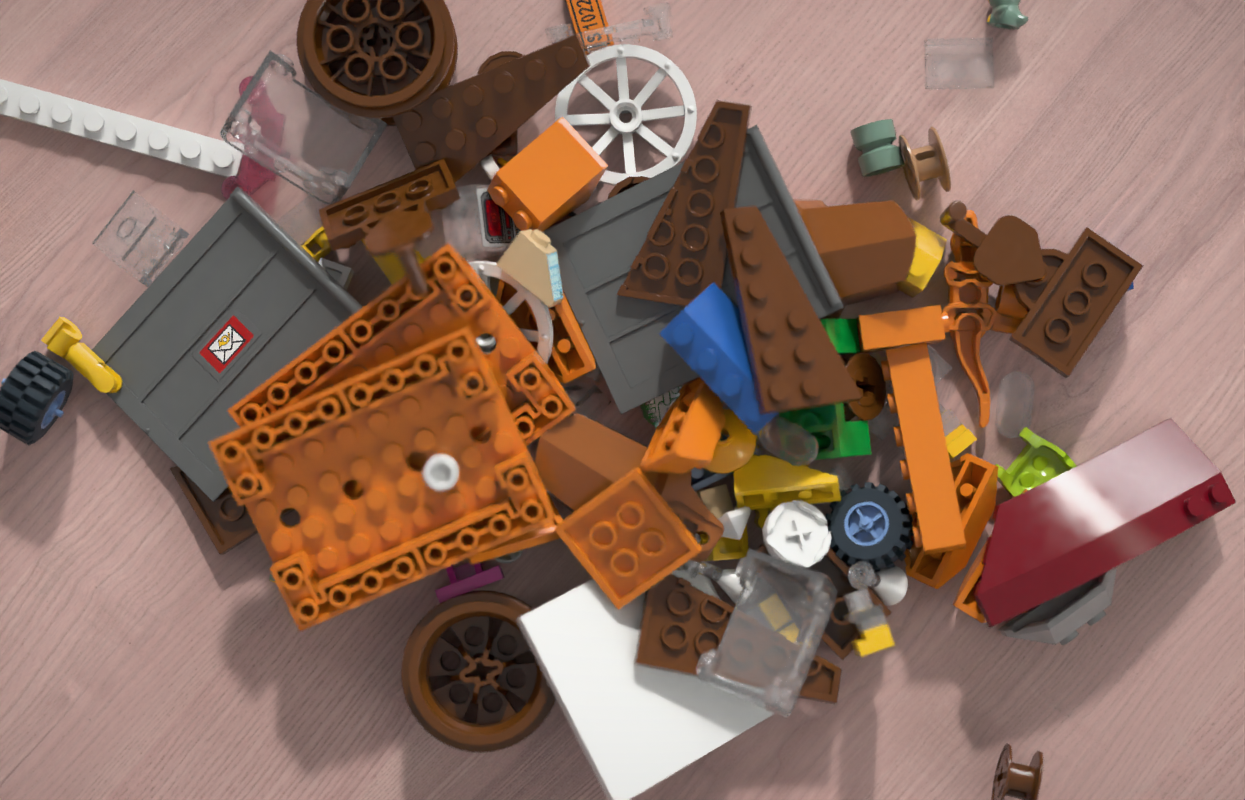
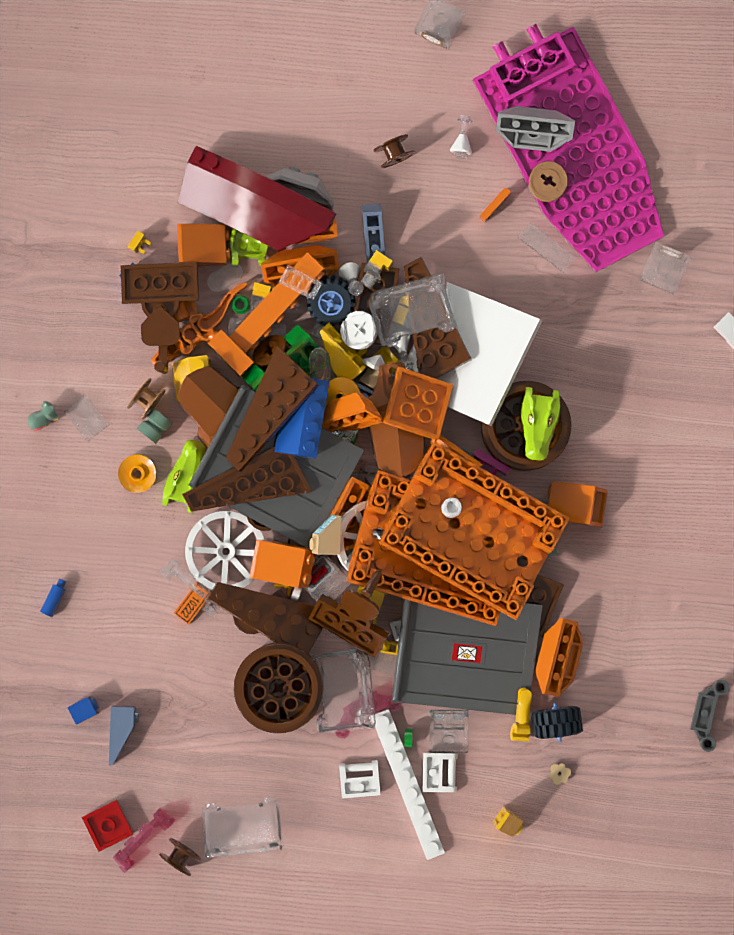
camera: 125 degrees left, 0 degrees up
(100, 175) = (433, 772): none -> white plate
(122, 469) = (559, 657): none -> orange wedge
(158, 61) = (359, 786): none -> white plate
(173, 176) = (408, 738): none -> green tile
(319, 661) = (579, 502): none -> orange slope
(471, 694) = (539, 420): none -> lime animal
(783, 140) = (183, 471): none -> lime animal
(829, 57) = (127, 469): none -> light orange dish
(926, 665) = (373, 229): none -> sand blue slope
(934, 512) = (312, 295): none -> clear slope
(969, 397) = (240, 310): none -> green plate
(1085, 407) = (203, 244): none -> orange slope
(1156, 316) = (137, 242): none -> yellow tile

